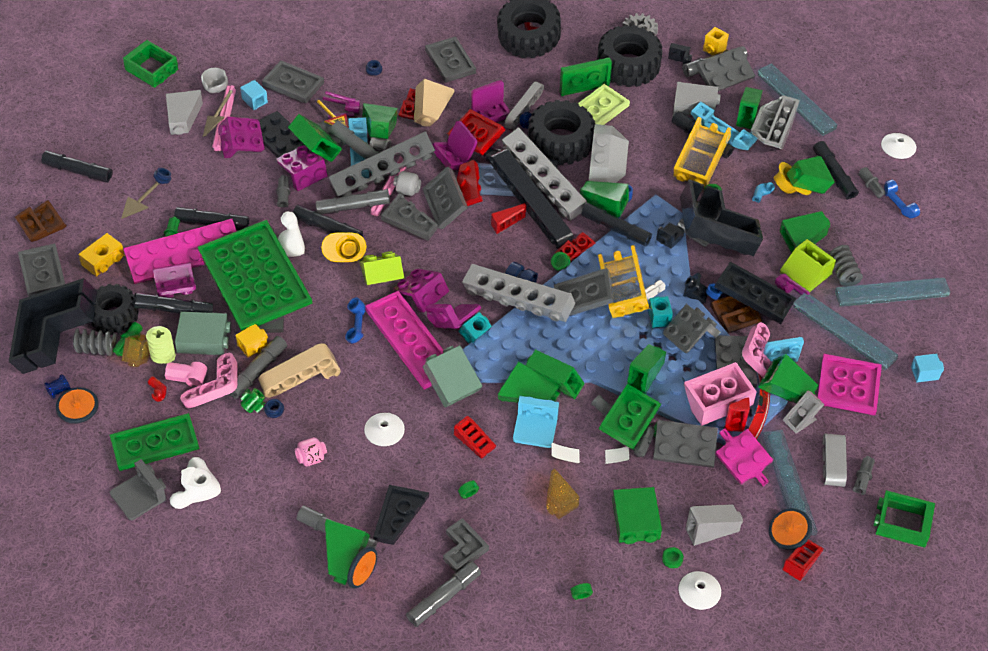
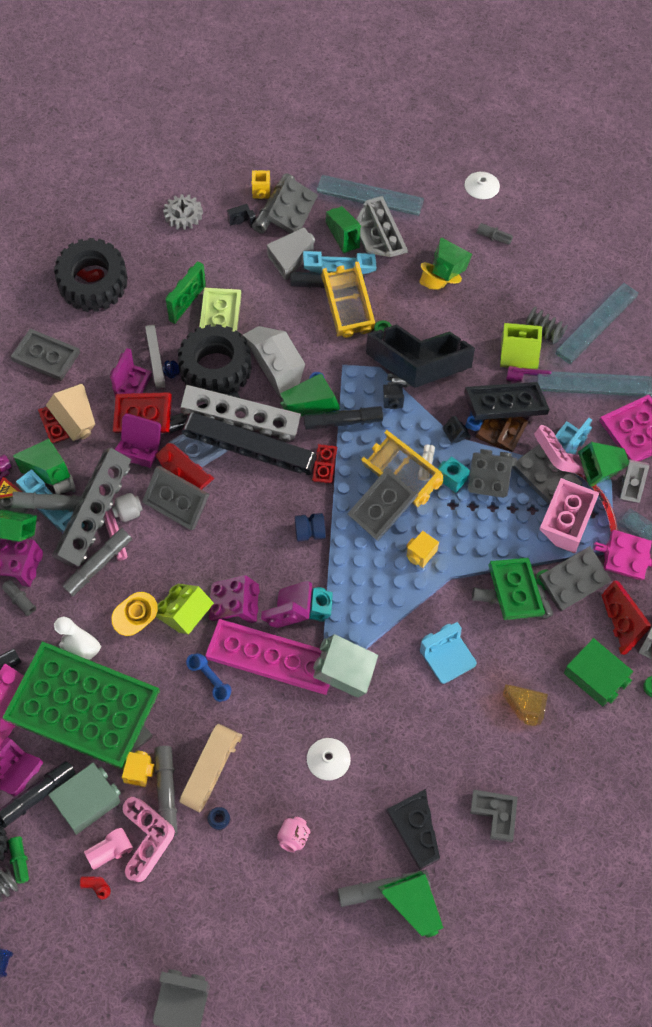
camera: 40 degrees left, 10 degrees up
(77, 405) = (36, 965): orange wheel -> none
(136, 350) = (41, 861): clear yellow slope -> none
(154, 441) = (145, 941): green plate -> none
(160, 345) = (63, 842): yellowish green piece -> none
(198, 484) = (227, 947): white head -> none
(252, 400) = (195, 827): green gear -> none
(323, 222) = (90, 601): black piece -> none
(362, 567) = (443, 906): wheel -> none
(408, 218) = (159, 540): dark grey wing -> none
(443, 594) = (521, 870): dark grey piece -> none
(465, 428) = (402, 713): red slope -> none
(468, 489) = (452, 759): green tile -> none
(494, 281) = (276, 551): light grey brick -> none
(503, 219) = (243, 478): red slope -> none
(528, 383) = (412, 625): green slope -> none
(559, 372) = (423, 596): green slope -> none
(560, 261) = (325, 486): green tile -> none
(572, 455) = (528, 633): white sticker -> none
(581, 591) = (621, 775): green tile -> none
(584, 342) = (421, 549): none -> yellow brick
(631, 41) = (198, 228): black tyre -> none
(646, 367) = (493, 535): green slope -> none
(698, 494) = (626, 617): none -> red wing
(737, 415) = (603, 524): red slope -> none
(761, 190) = (419, 300): dark azure arm -> none
(809, 226) = (487, 317): green slope -> none
(837, 172) = (475, 248): black piece -> none
(911, 210) = (545, 239): blue bar -> none

